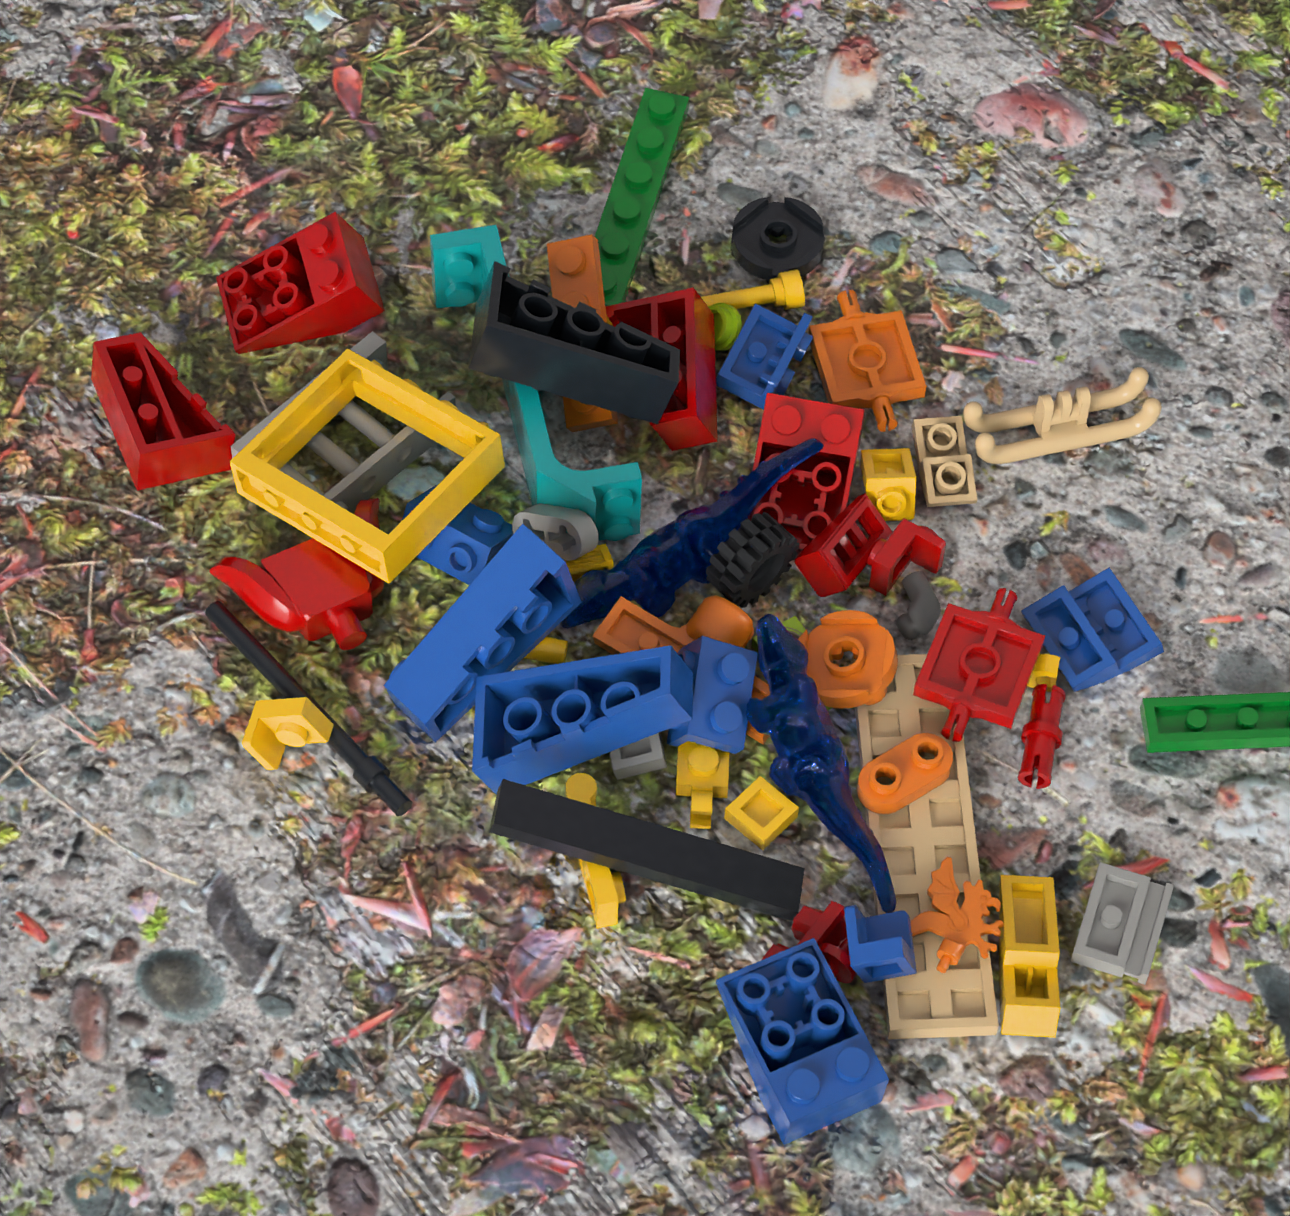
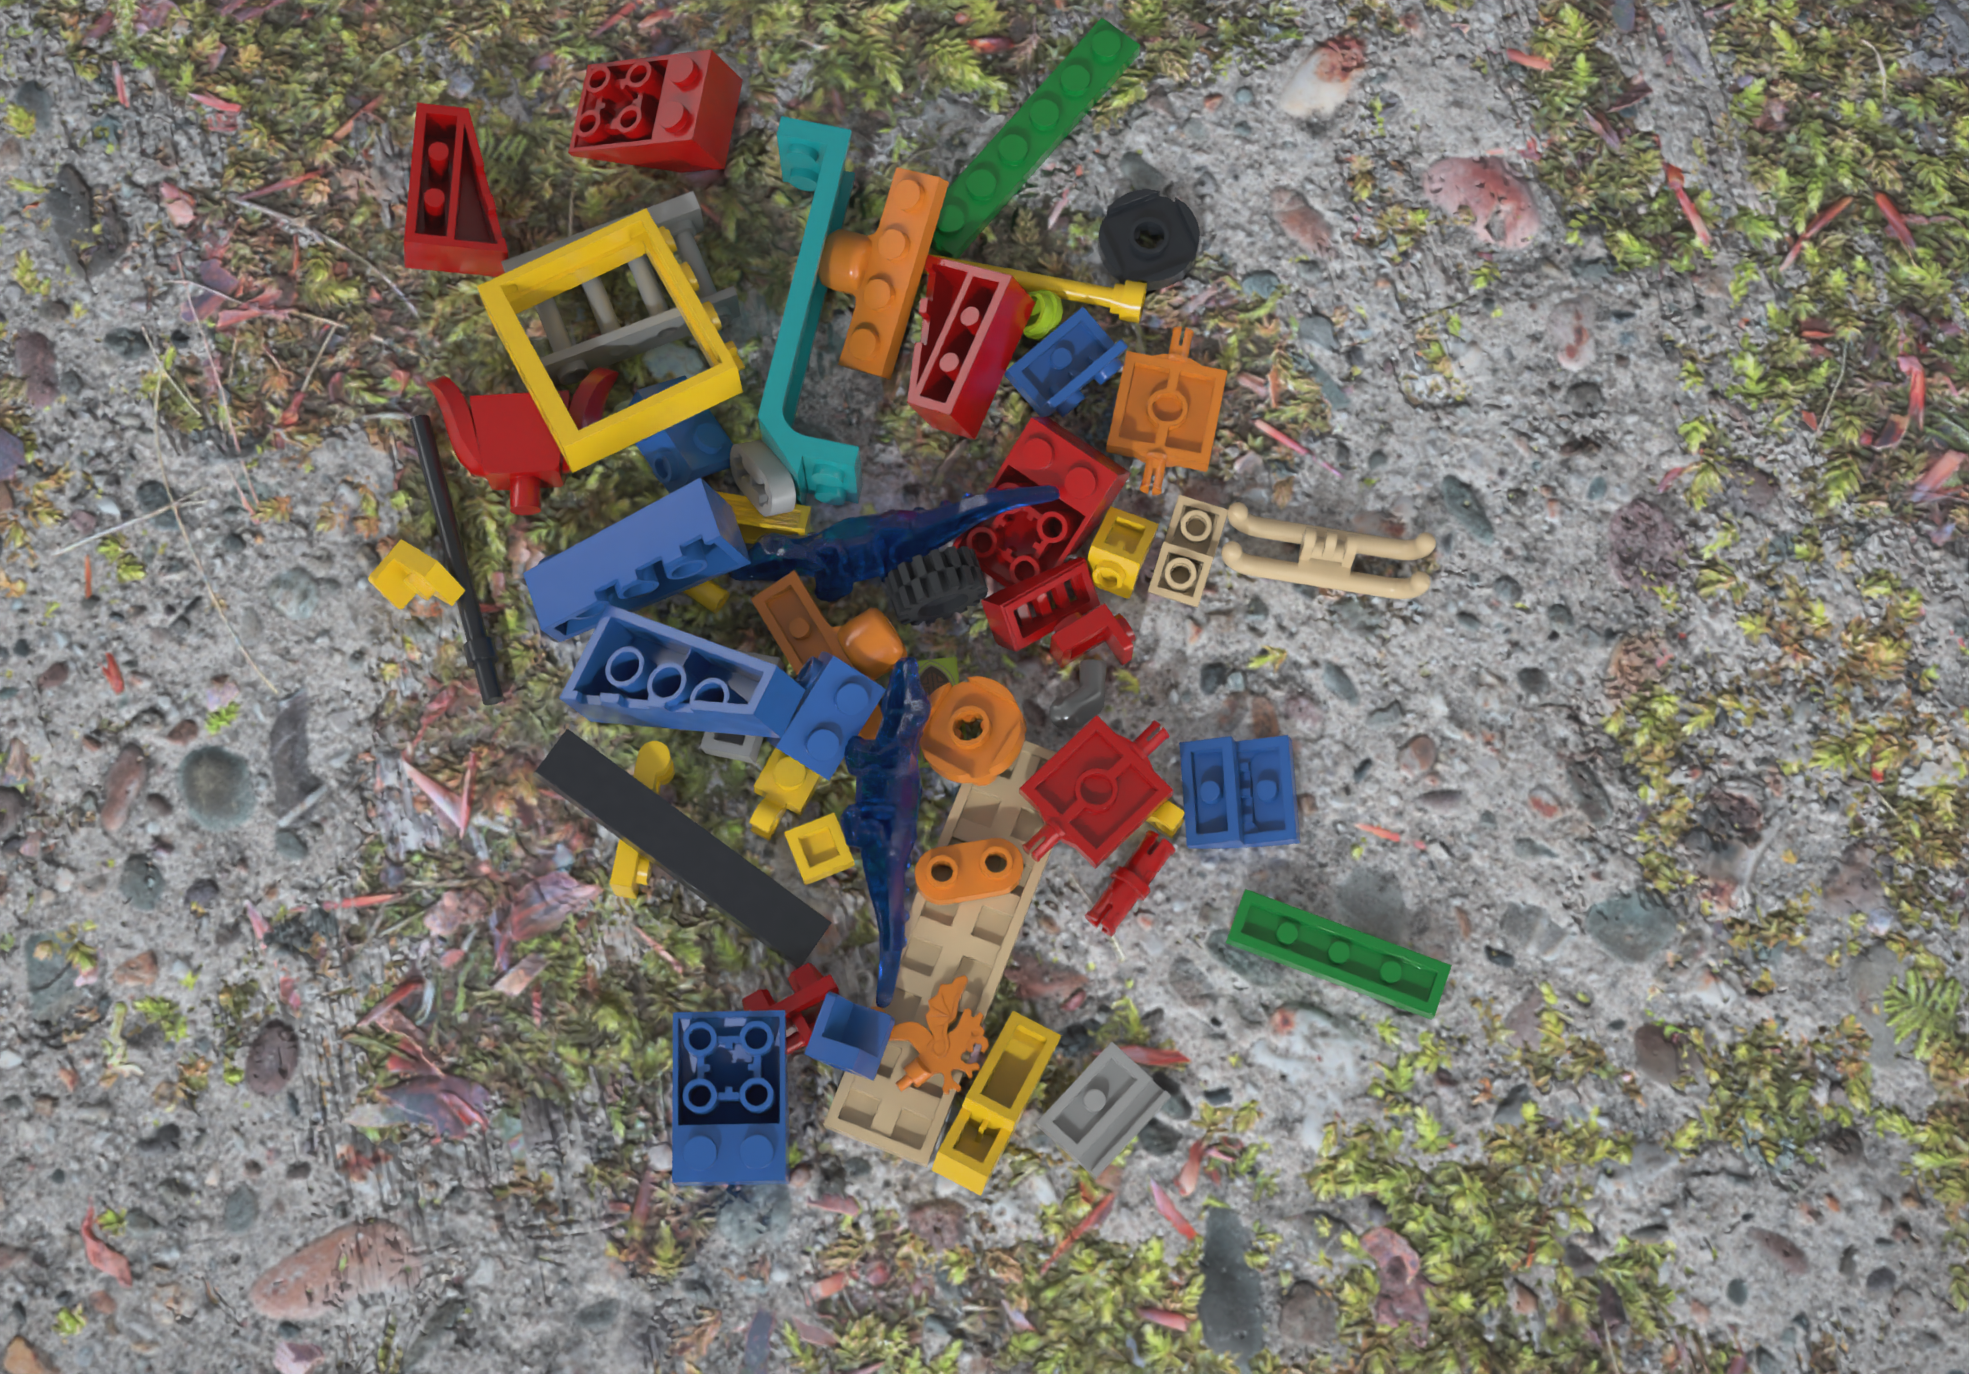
camera: 25 degrees right, 15 degrees up
(569, 350) = (843, 303): black wedge -> none

